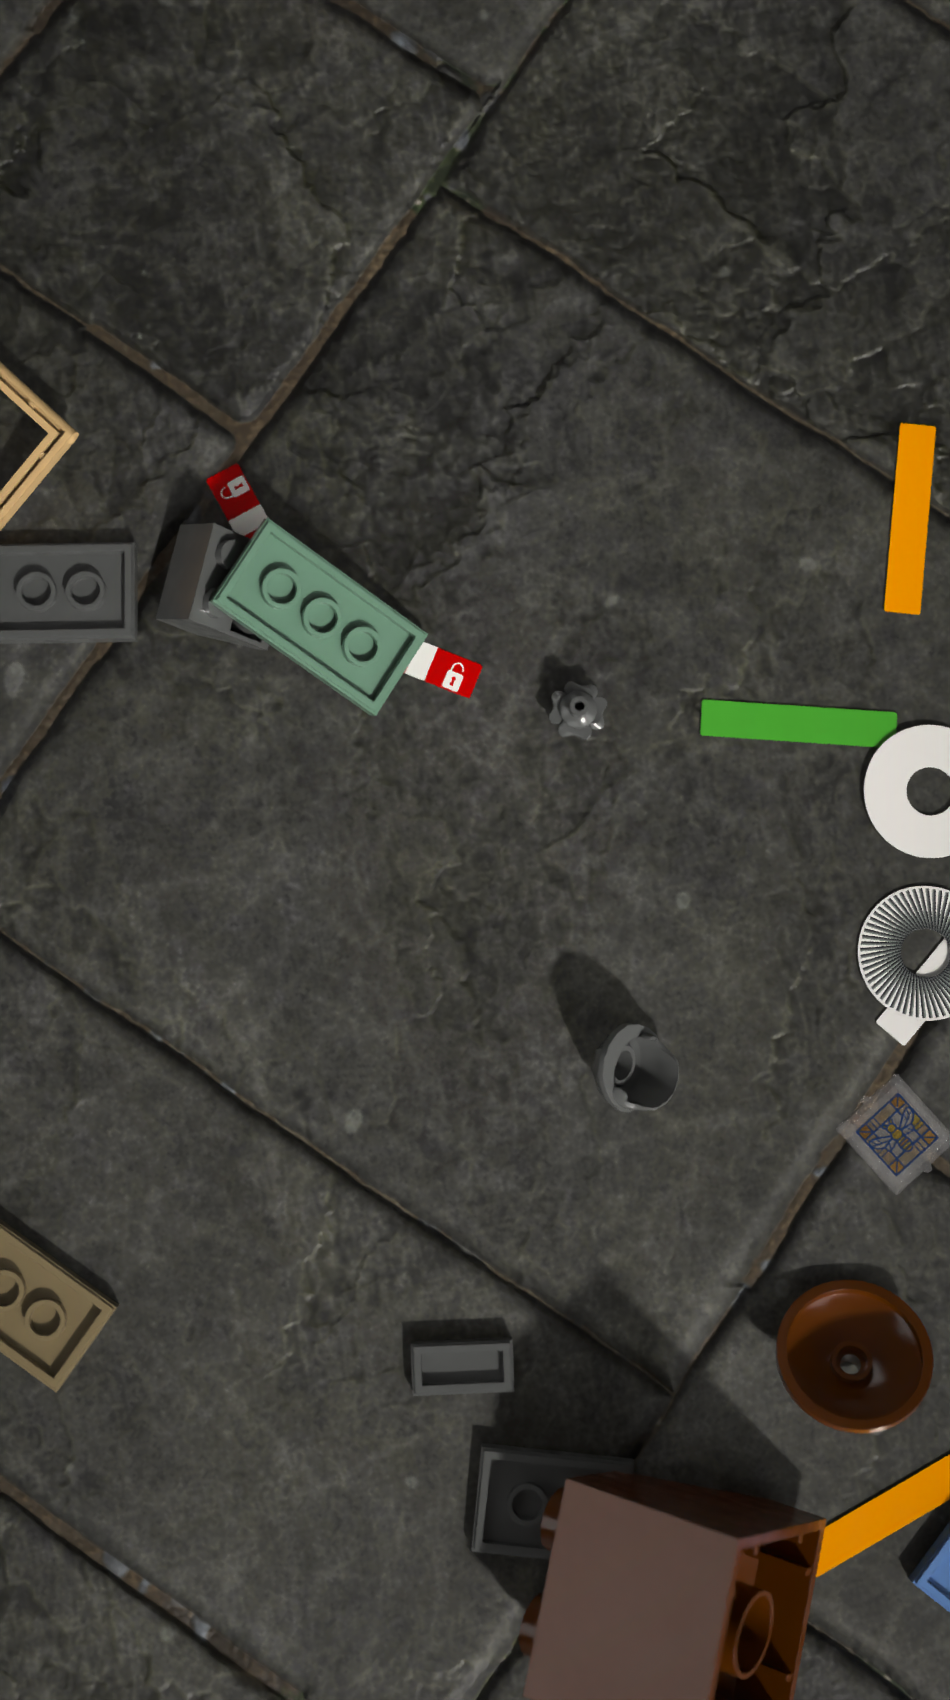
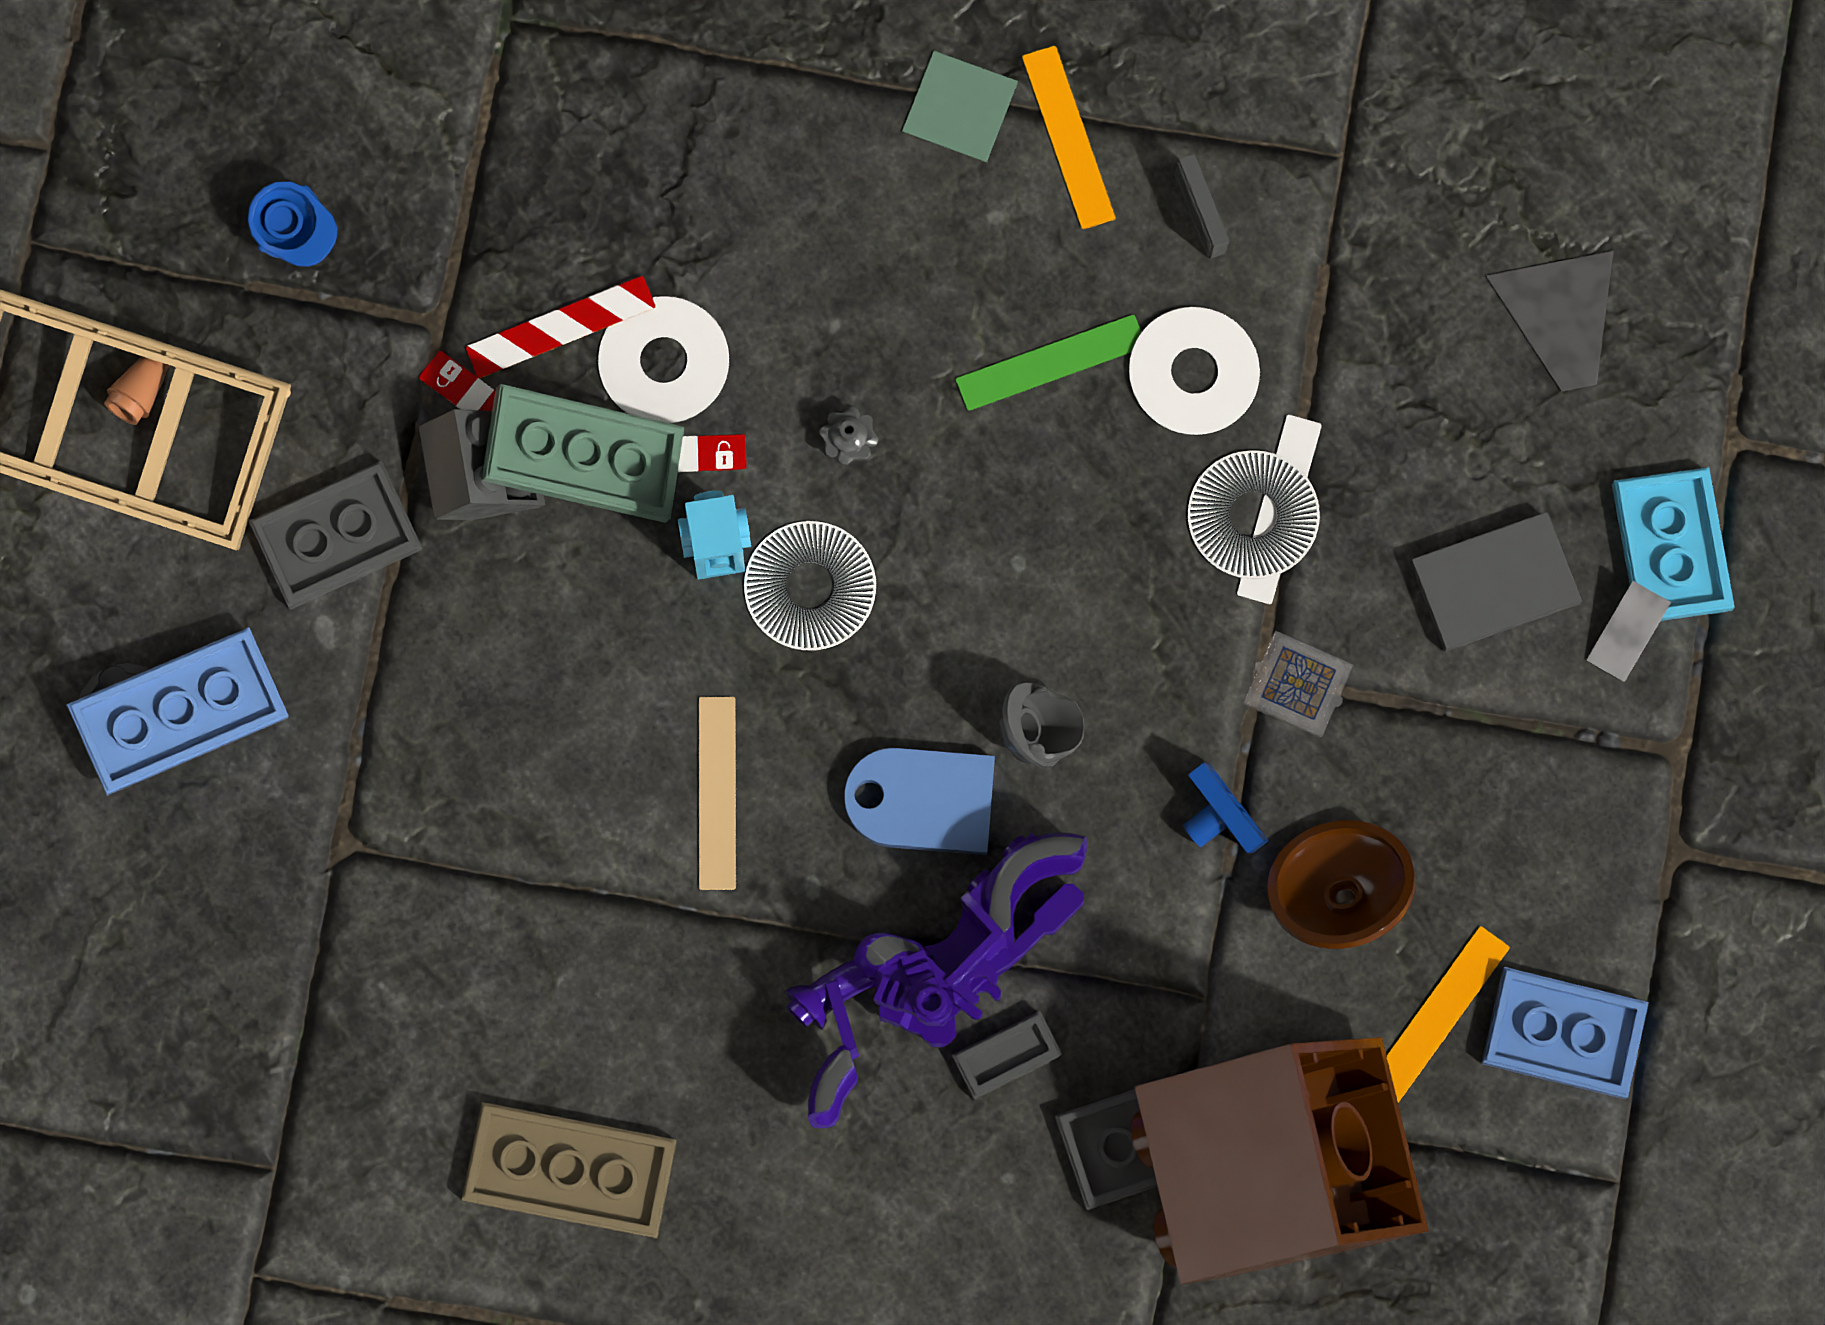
camera: 25 degrees left, 5 degrees down
(149, 283) = (291, 224): none -> blue hat
(304, 992) = (717, 793): none -> tan sticker
(357, 489) = (560, 327): none -> sticker
(407, 749) = (714, 534): none -> medium azure brick
(417, 1272) = (933, 983): none -> dark purple piece
(432, 604) = (673, 400): none -> white sticker
(470, 877) = (799, 626): none -> sticker
(496, 1090) = (927, 802): none -> medium blue tile
(769, 1229) = (1221, 813): none -> blue tile
(821, 445) = (960, 106): none -> sand green sticker

